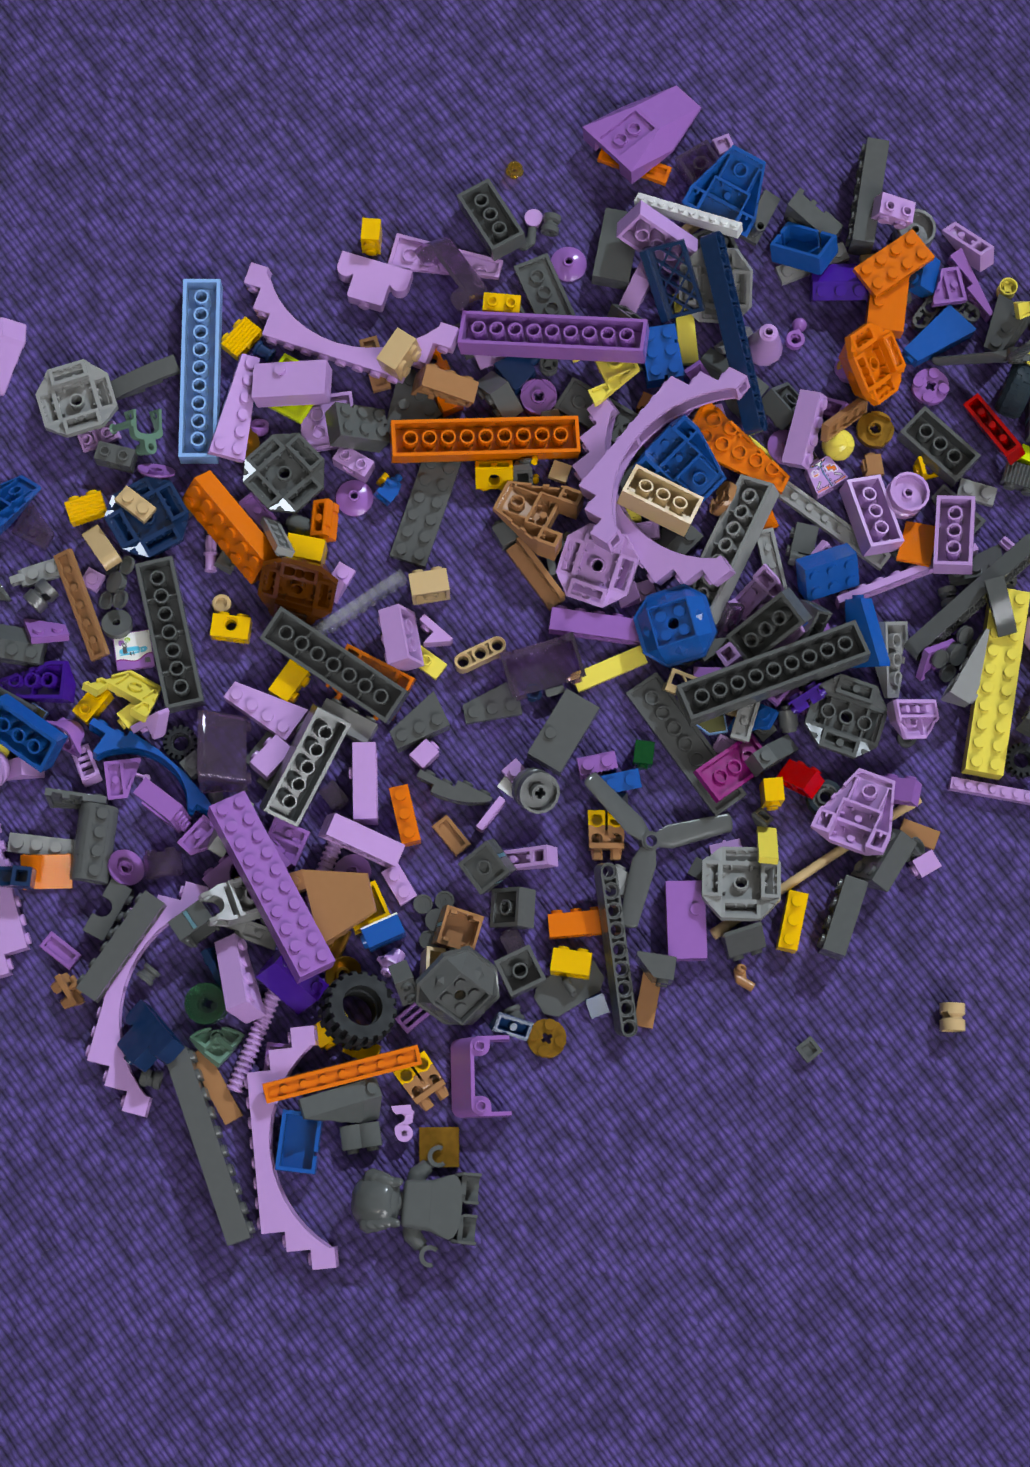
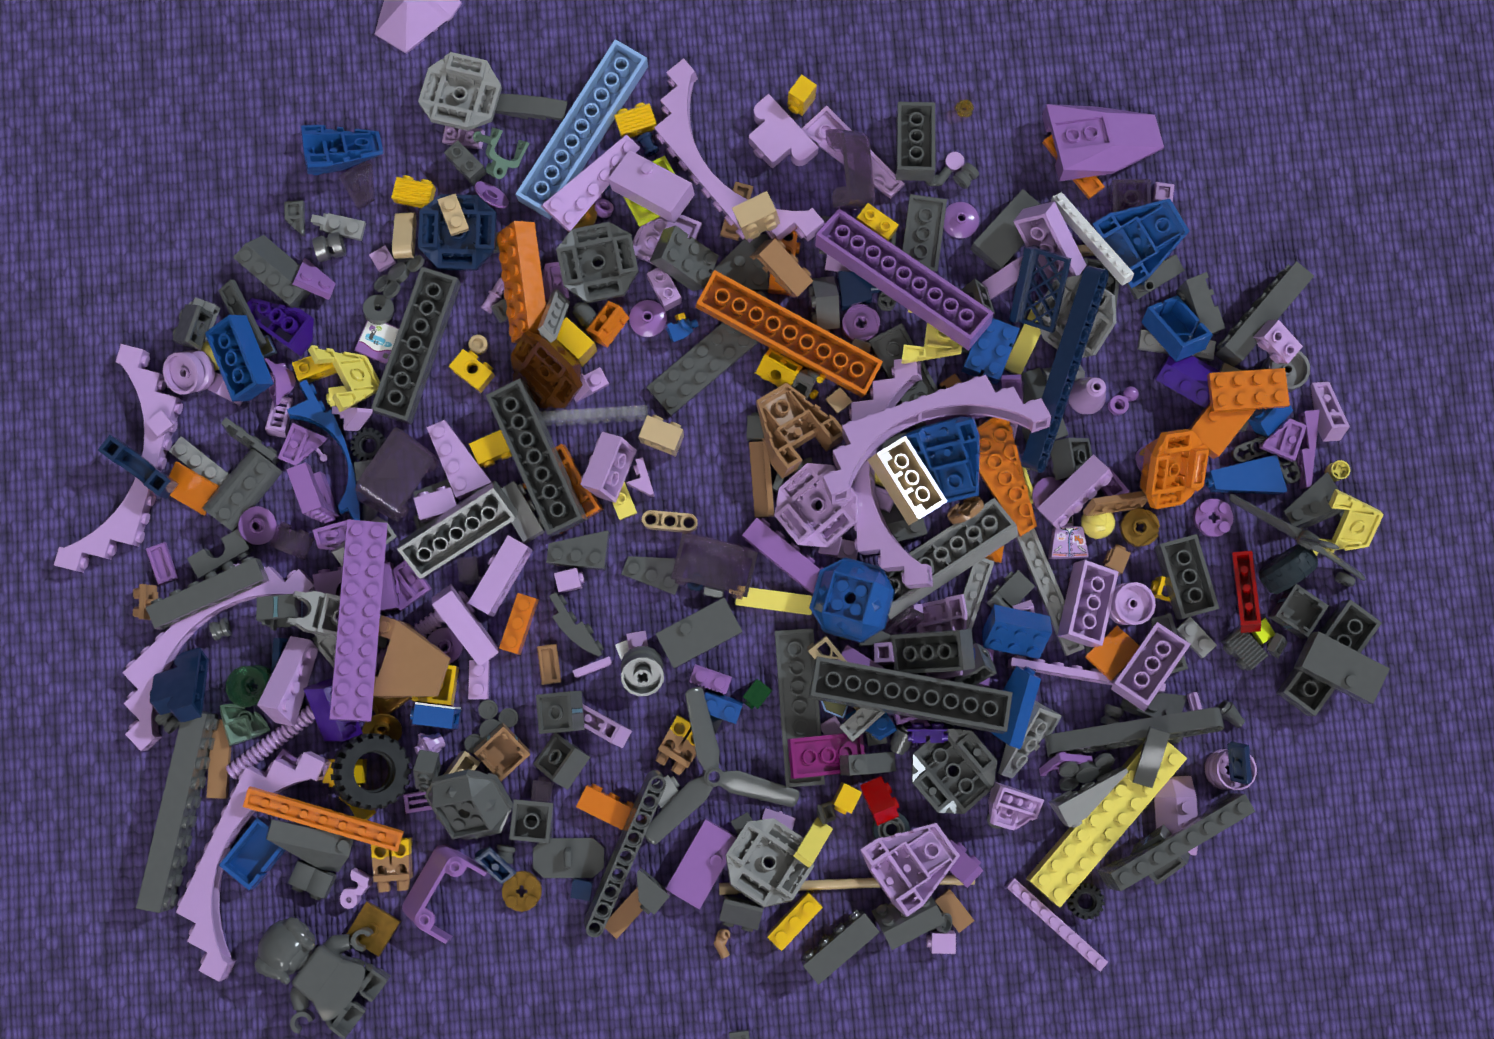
camera: 30 degrees right, 5 degrees up
(81, 605) = (358, 275): medium nougat plate -> none
(571, 962) = (581, 840): yellow brick -> none

